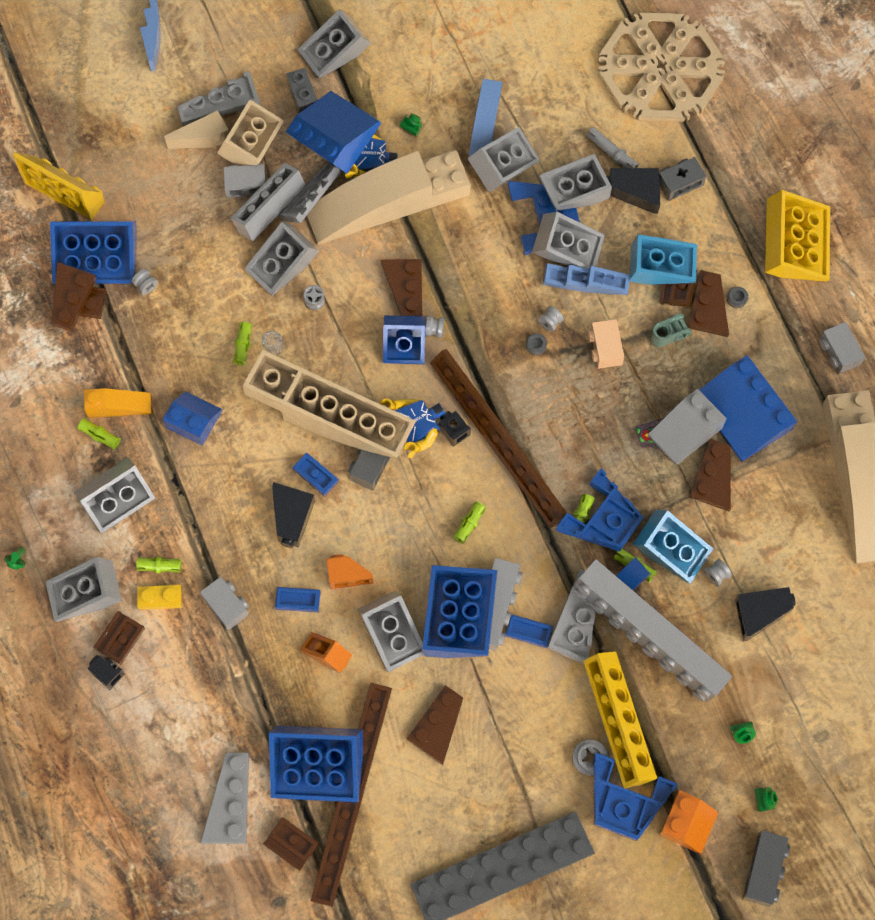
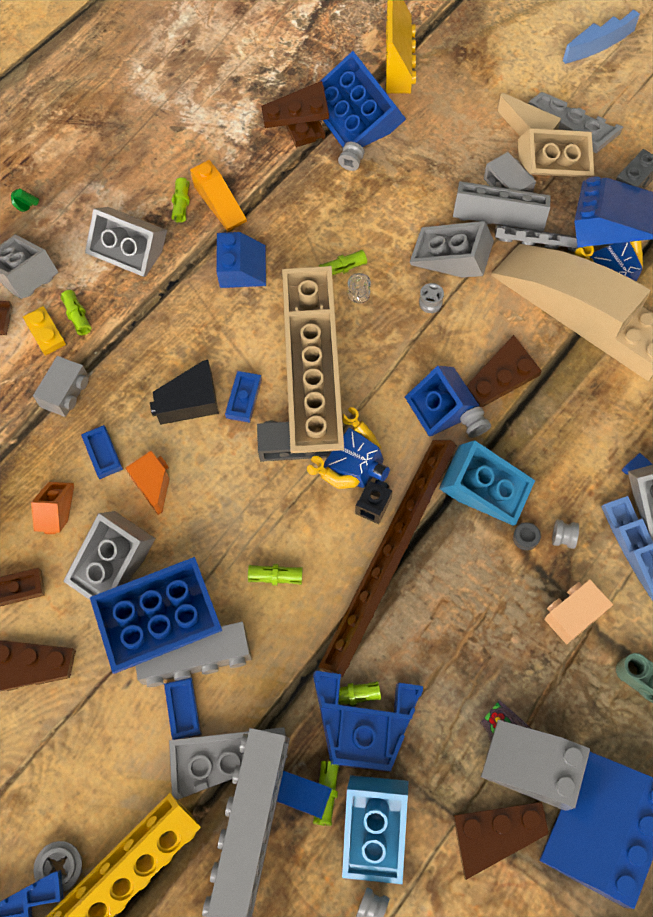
camera: 65 degrees right, 5 degrees down
(484, 346) = (487, 483): none -> dark azure slope

